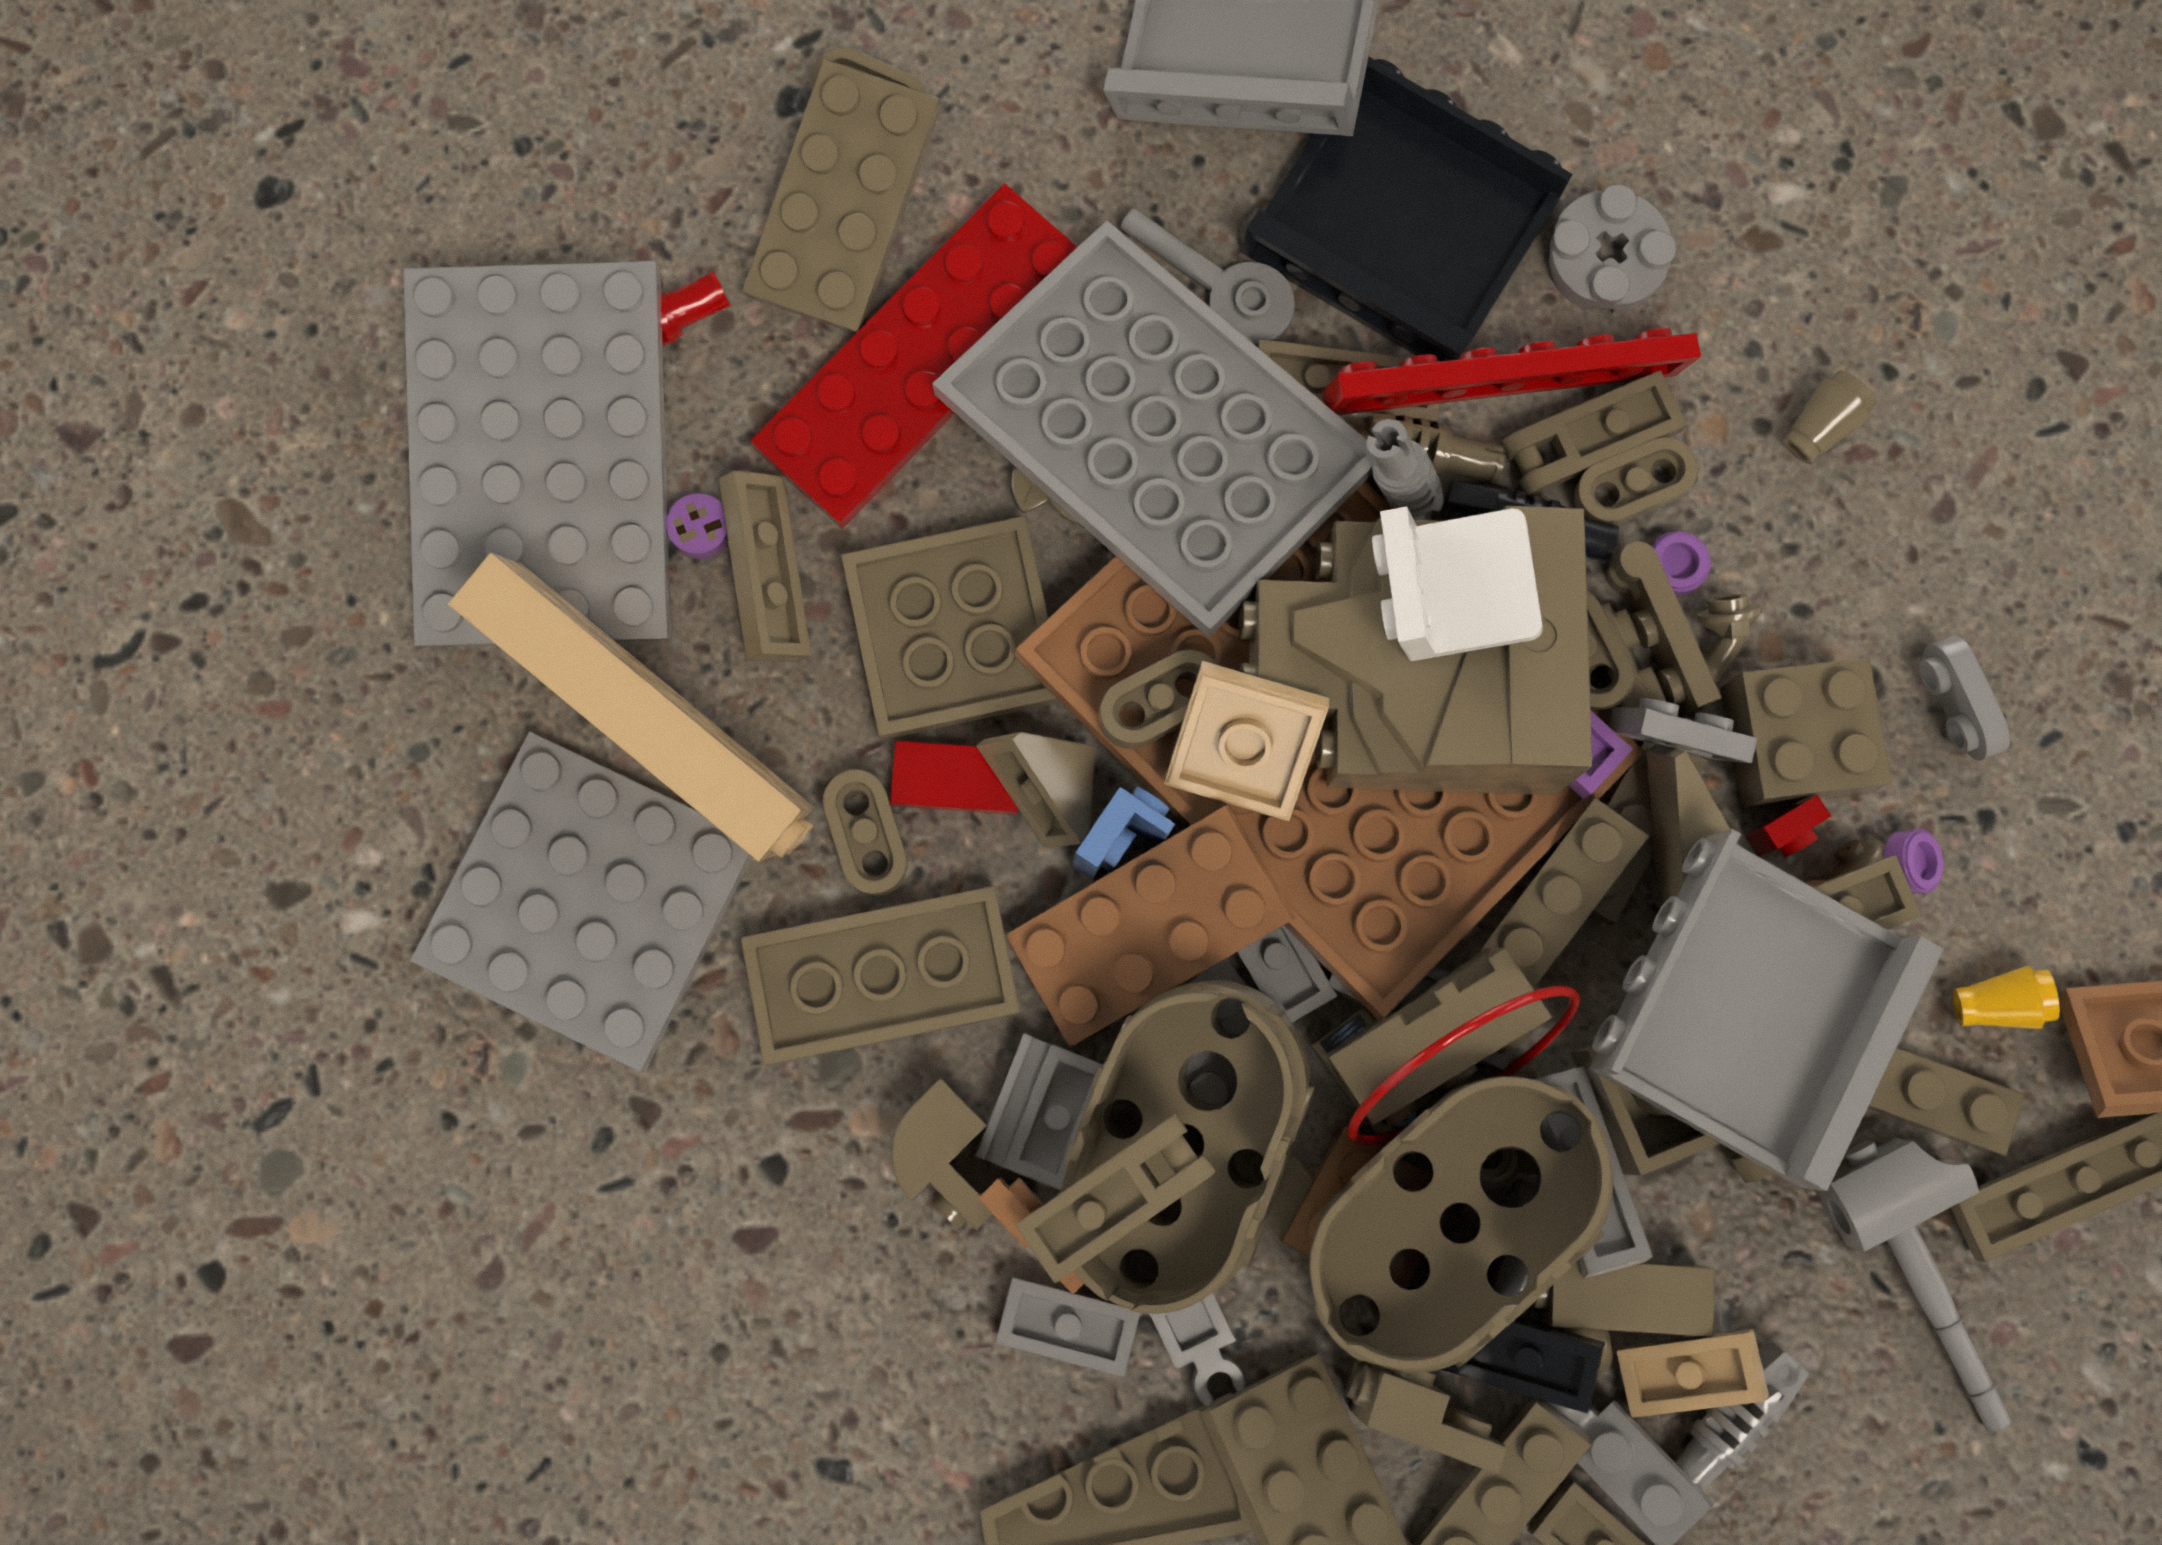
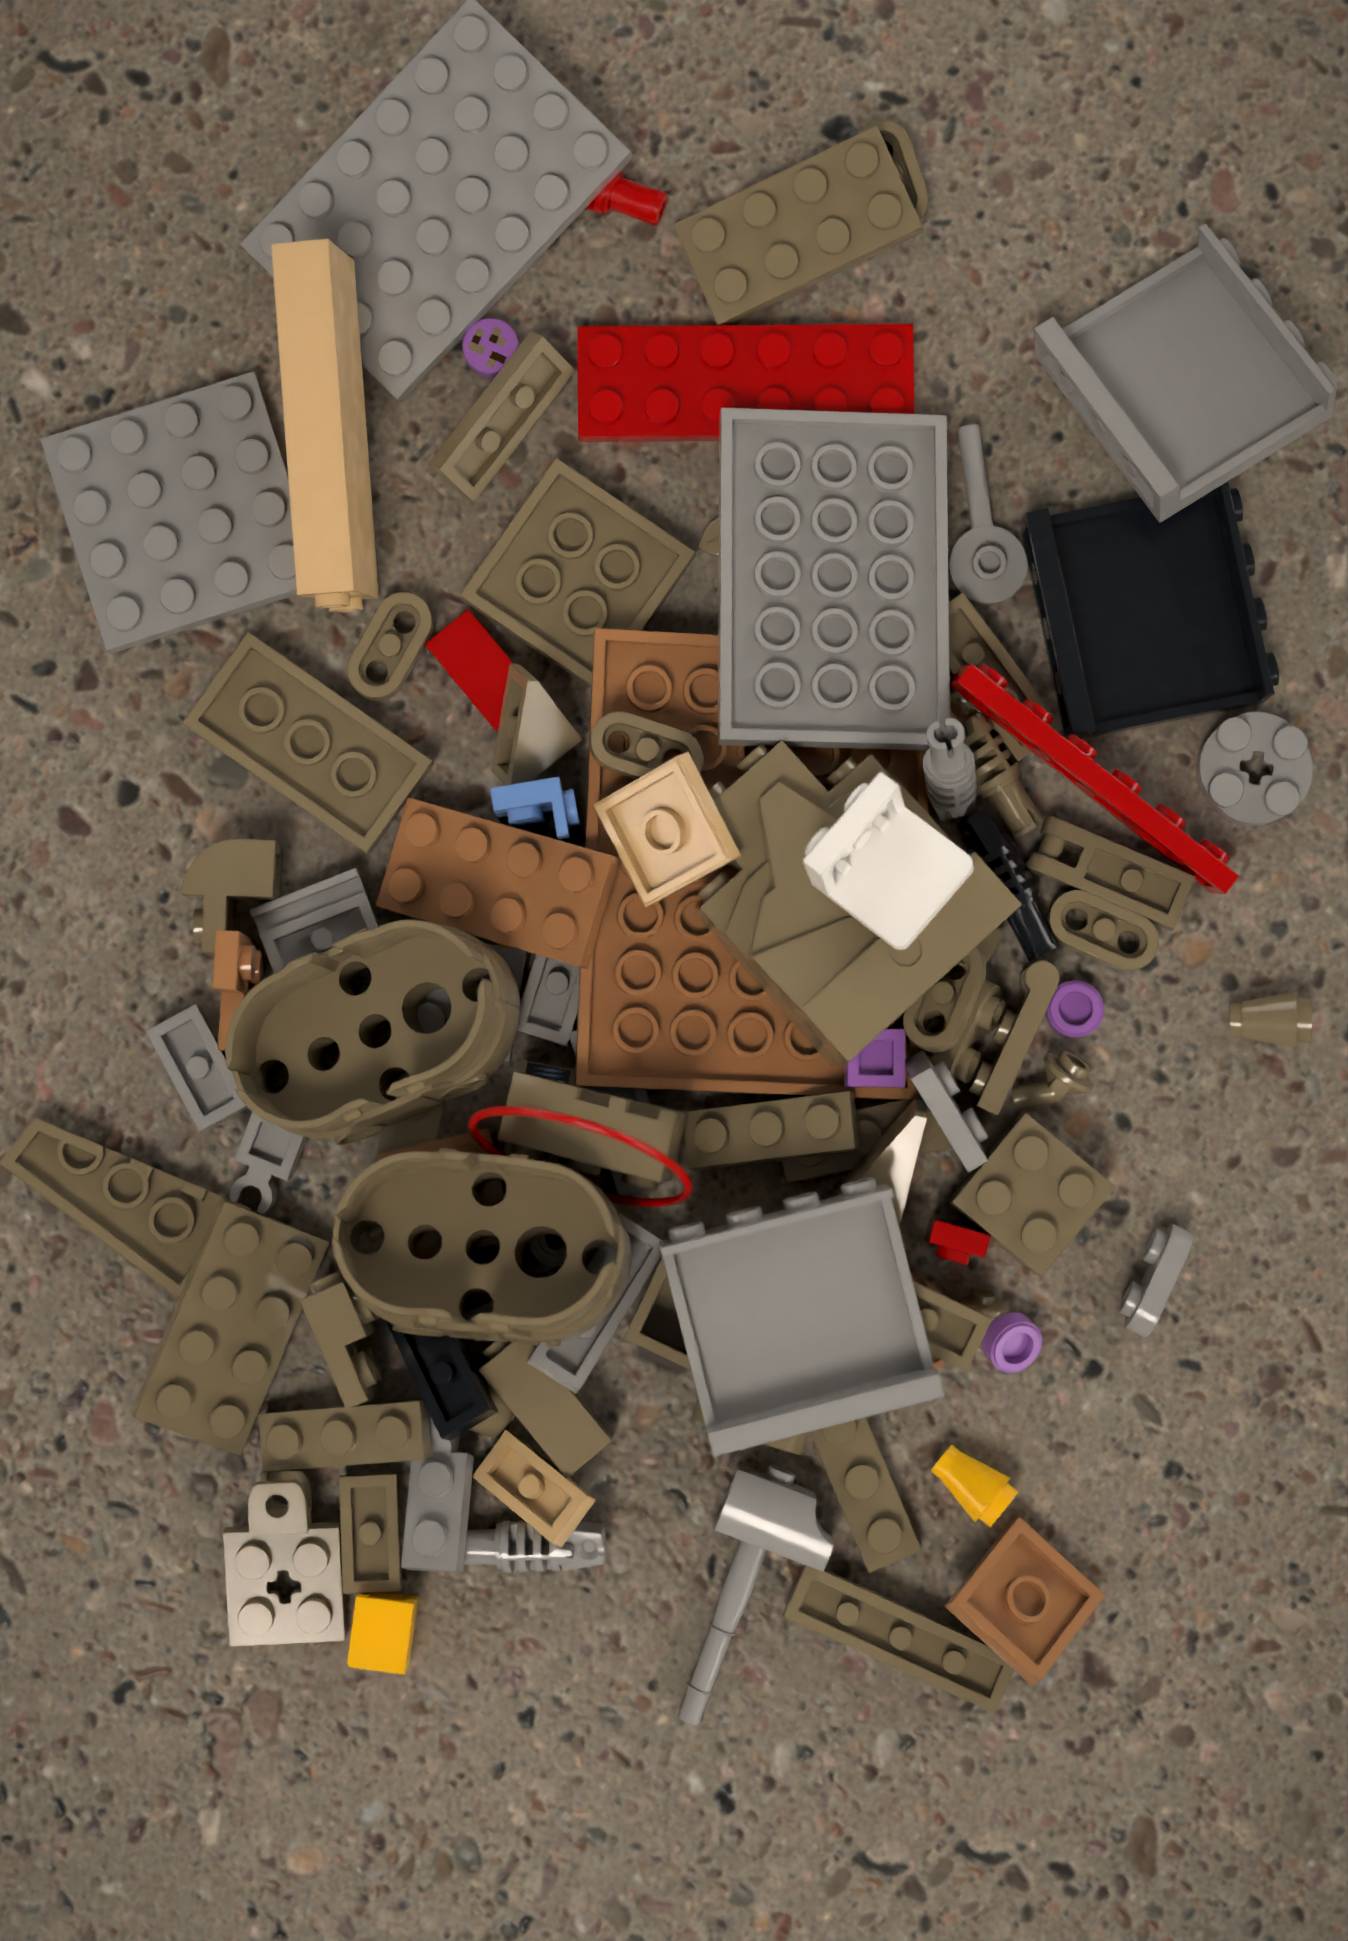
camera: 50 degrees right, 5 degrees up
(1112, 1200) = (288, 1011): dark tan plate -> none

